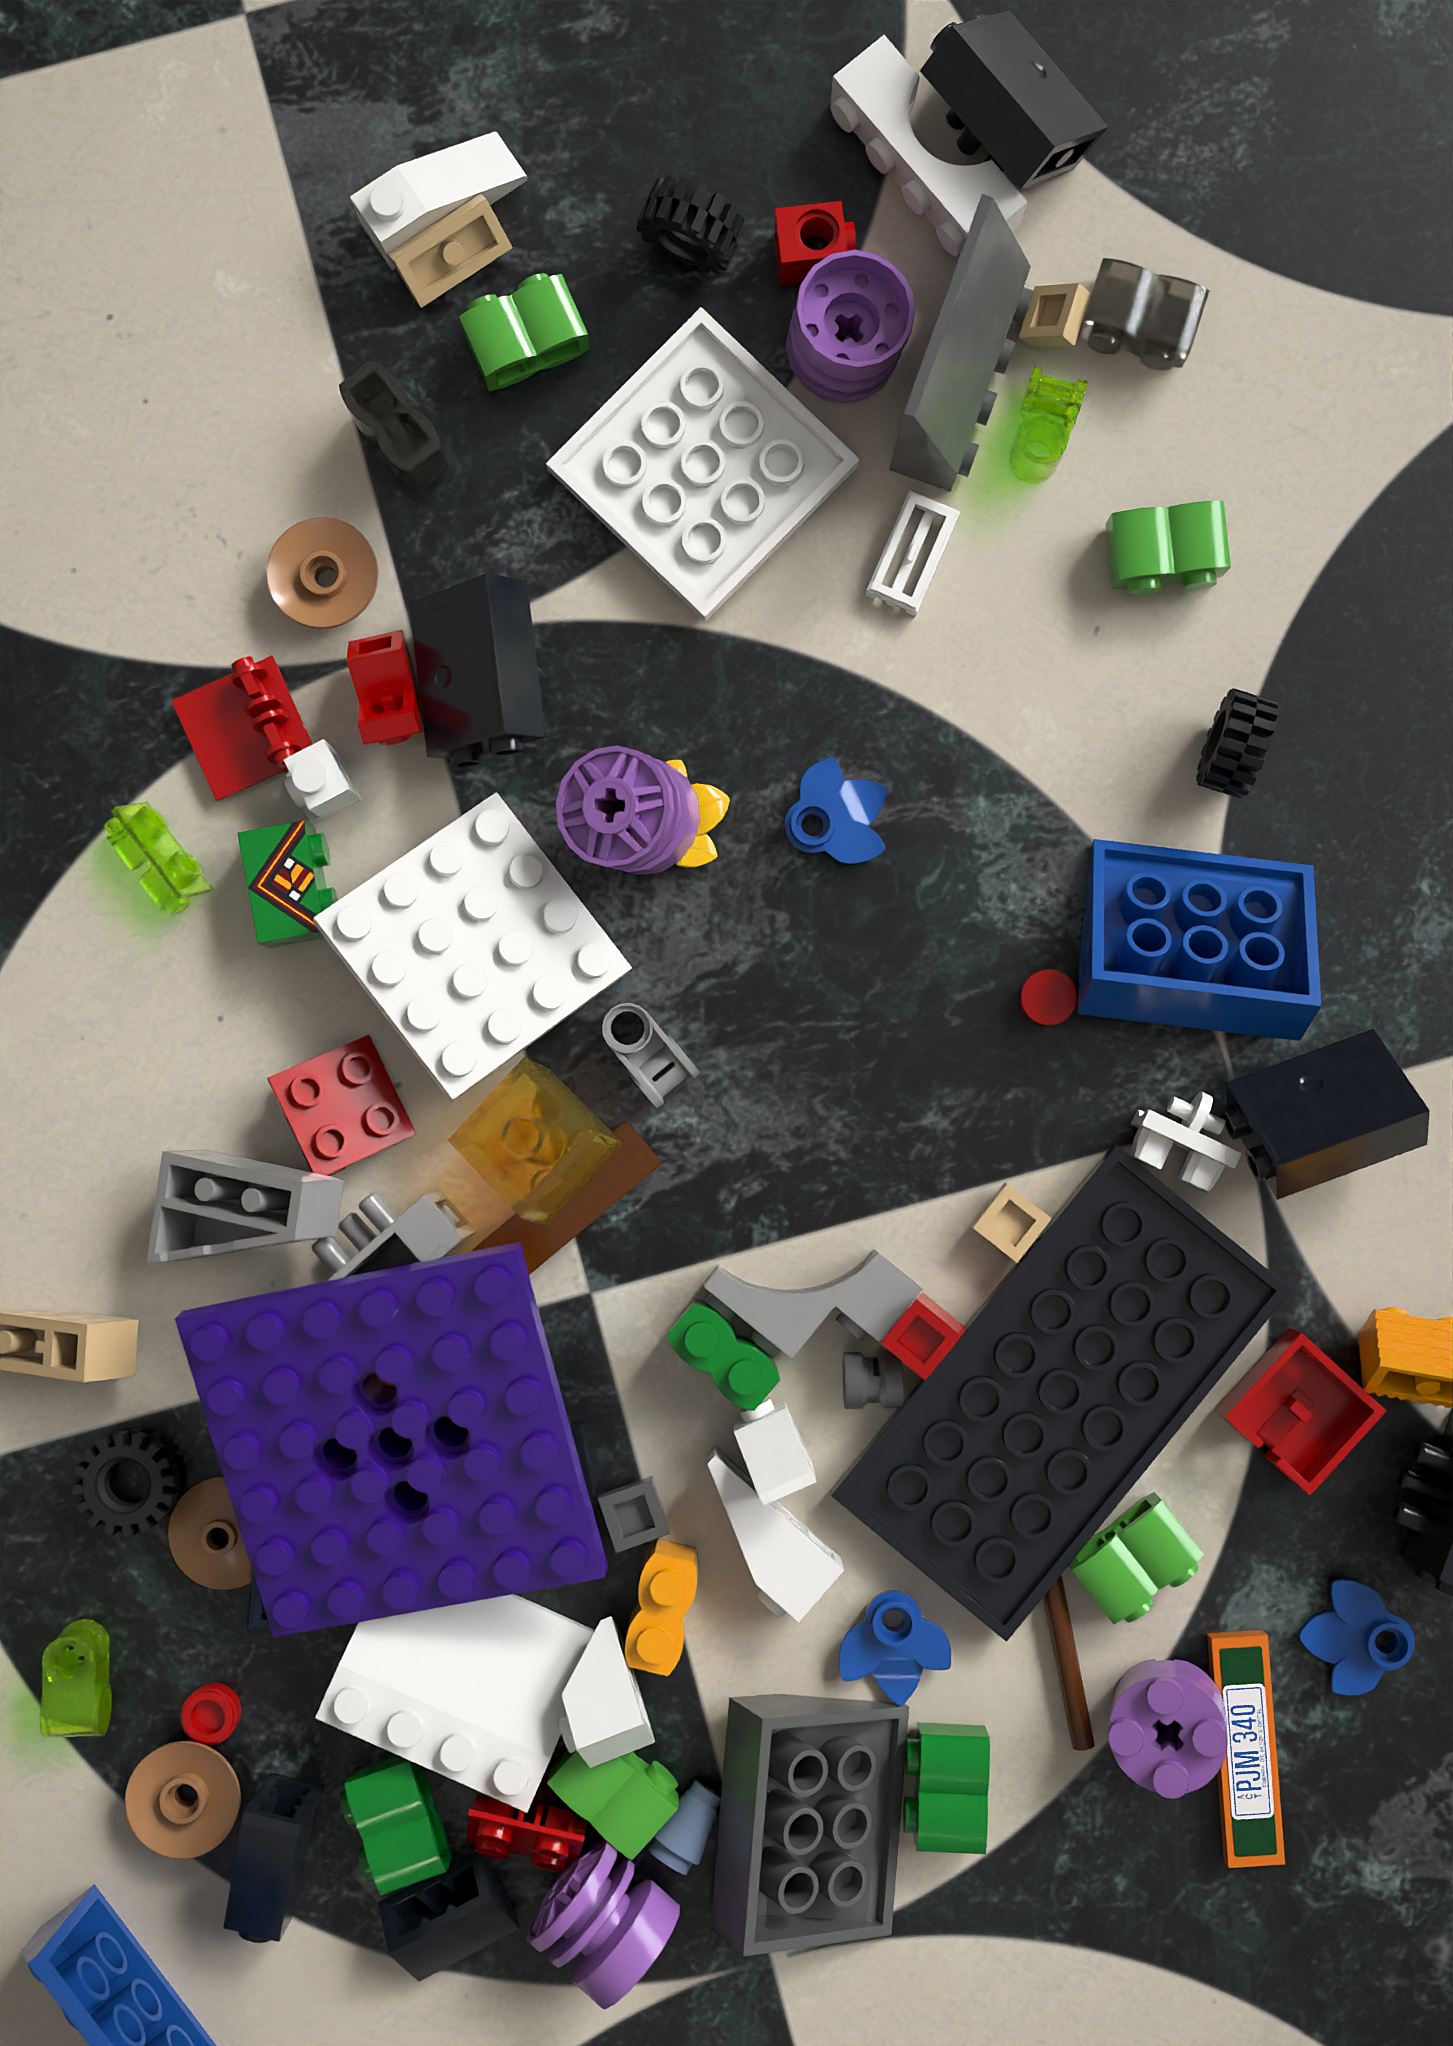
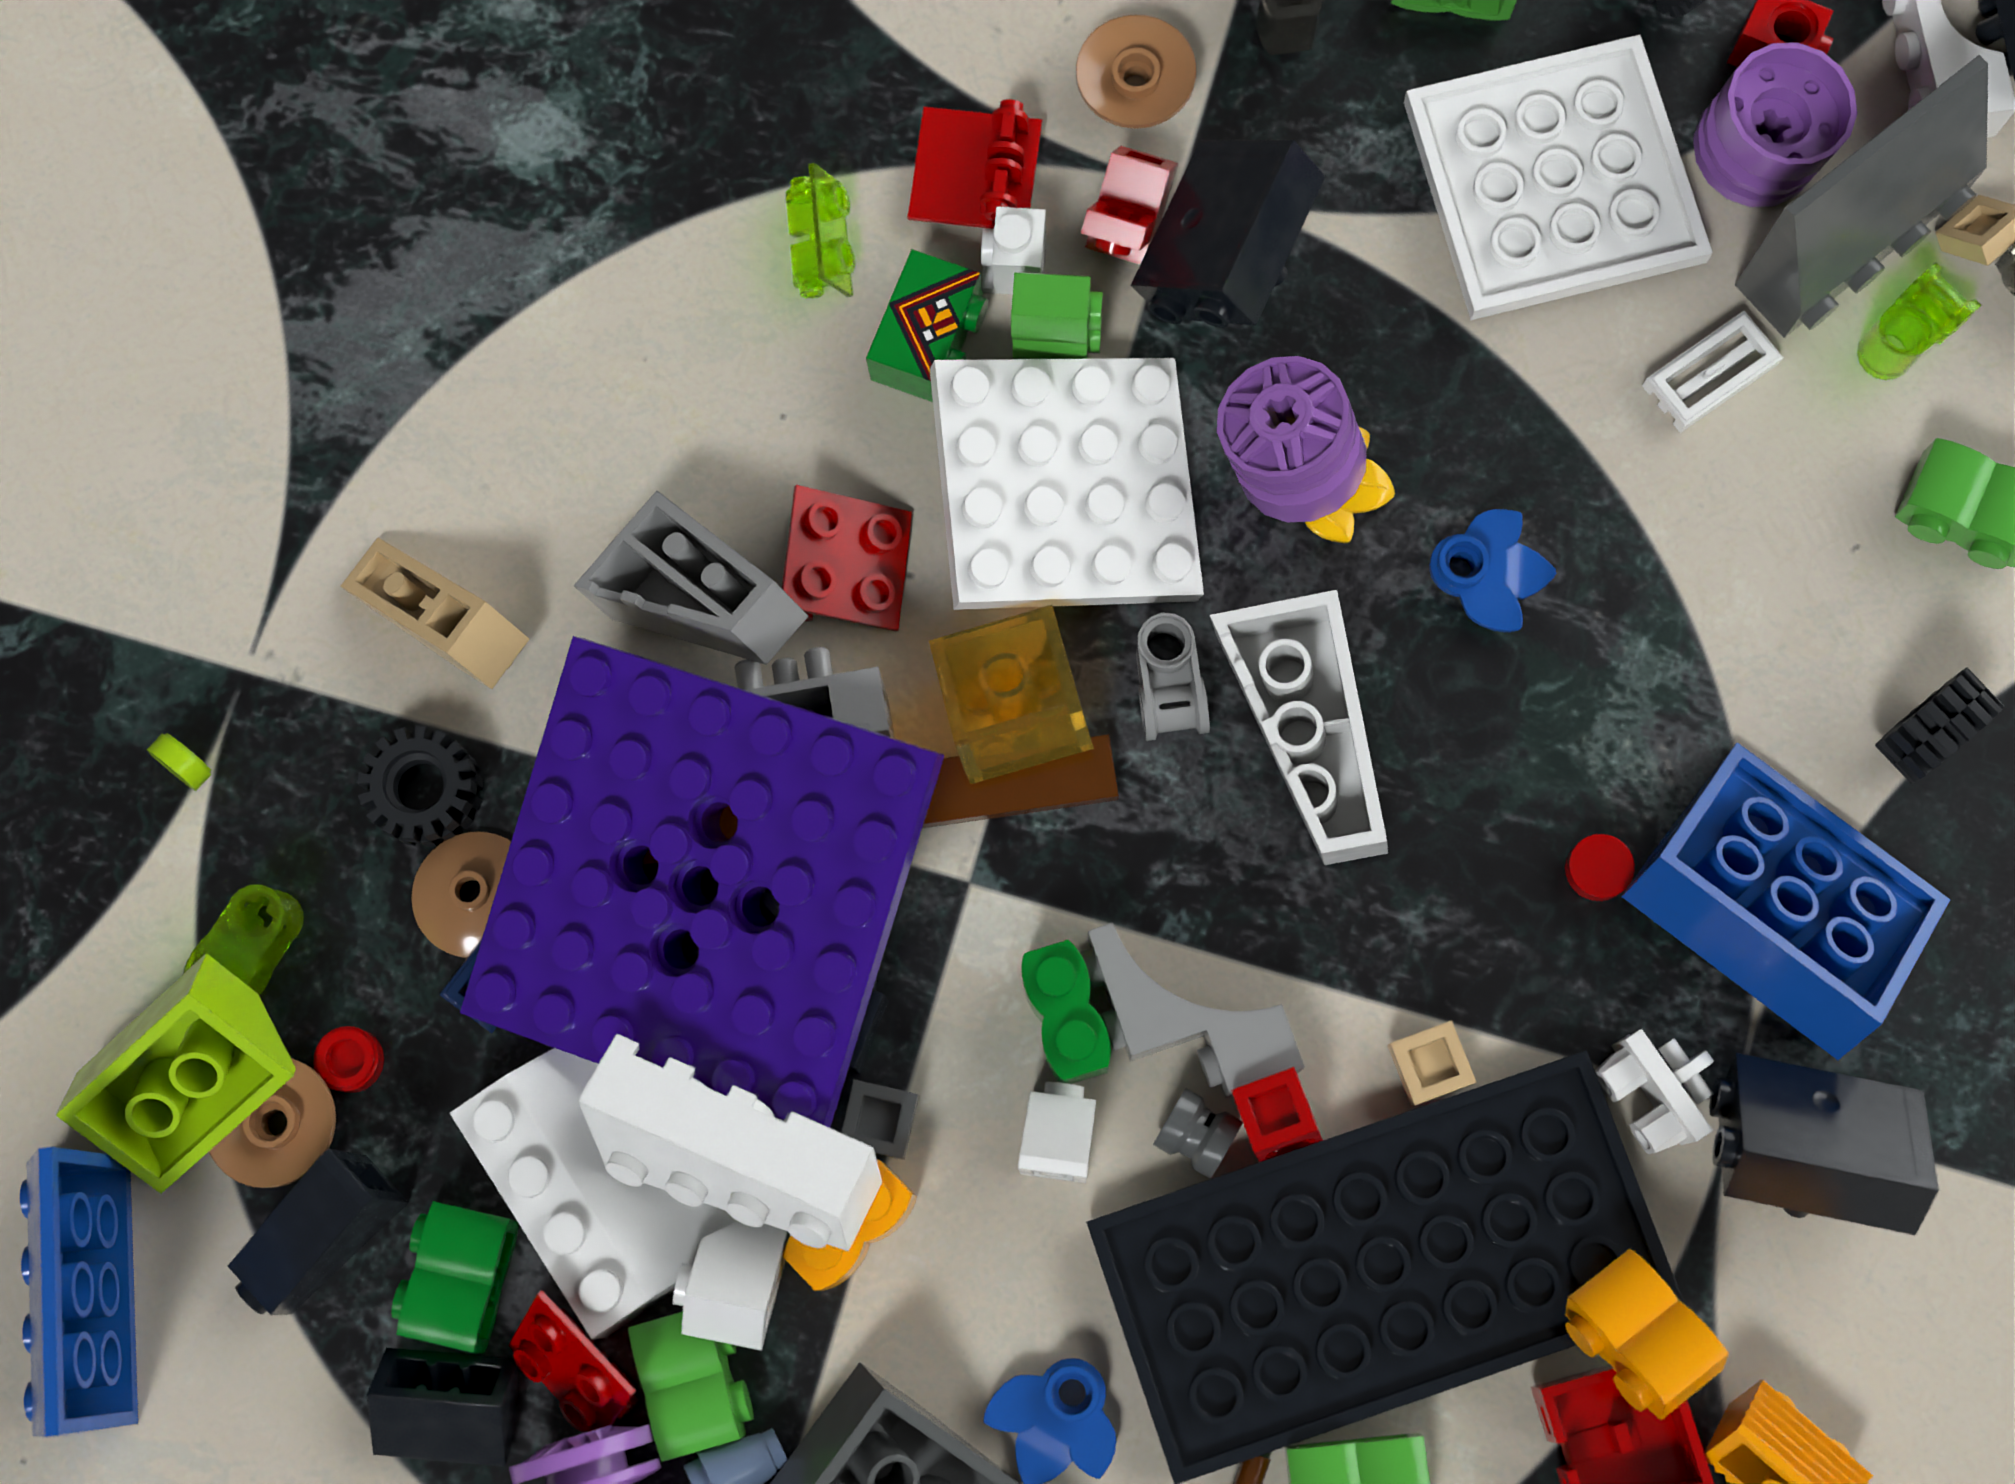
camera: 40 degrees right, 10 degrees down
(92, 1816) = (179, 1075): none -> lime slope
(385, 823) = (1055, 316): none -> bright green brick
(541, 1626) = (727, 1150): none -> white wedge
(765, 1014) = (1307, 704): none -> white wedge
(781, 1552) = (999, 1241): white slope -> none
(1277, 1337) = (1645, 1334): none -> light orange brick

